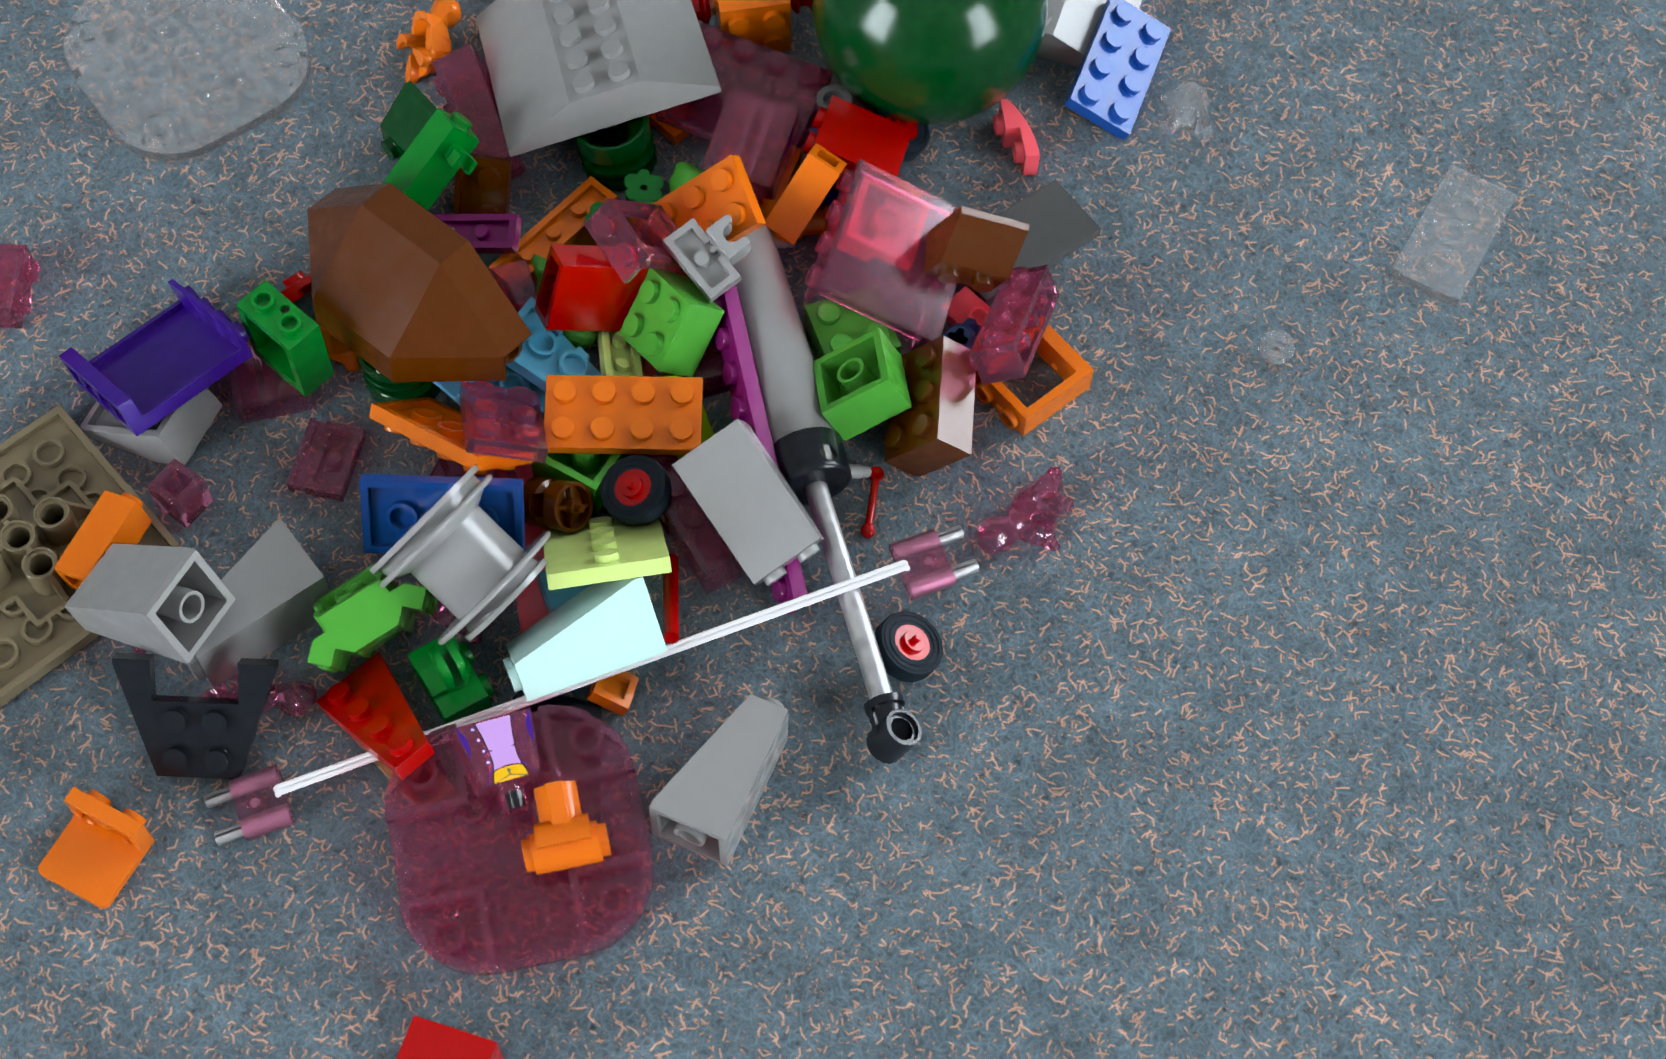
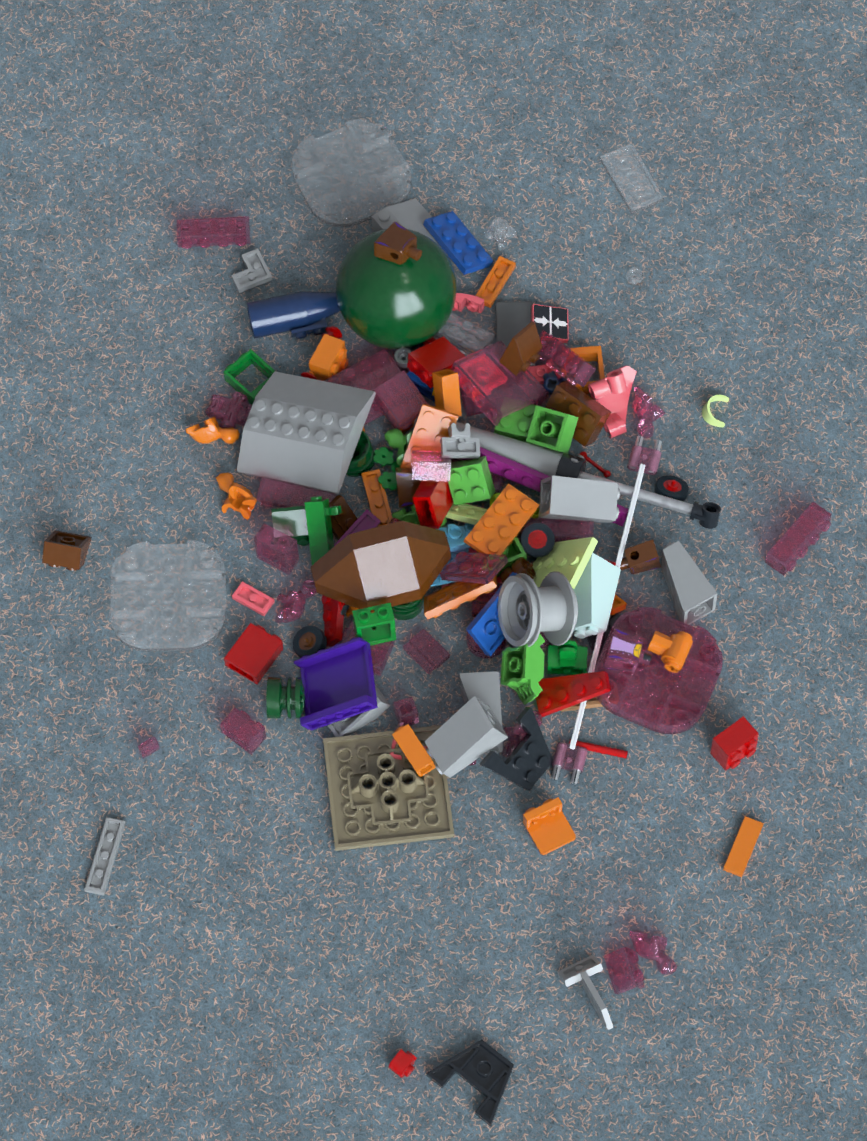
camera: 50 degrees left, 0 degrees up
(91, 302) = (284, 697): none -> dark green wheel
(159, 221) = (254, 653): none -> red brick
(228, 282) = (309, 641): none -> black wheel
(262, 166) = (253, 598): none -> coral plate
(278, 228) = (295, 602): none -> clear pink animal
(313, 842) = (602, 749): none -> red bar
(356, 134) = (284, 549): none -> clear pink window
(727, 673) = (641, 558): none -> reddish brown torso
(956, 162) = (465, 335): none -> clear plate
(966, 919) = (798, 538): none -> clear pink brick
(1010, 449) = (614, 395): none -> coral panel
(1083, 276) = (552, 320): none -> black tile
(1093, 157) = (495, 280): none -> orange plate
(1097, 628) = (708, 417): none -> yellowish green helmet

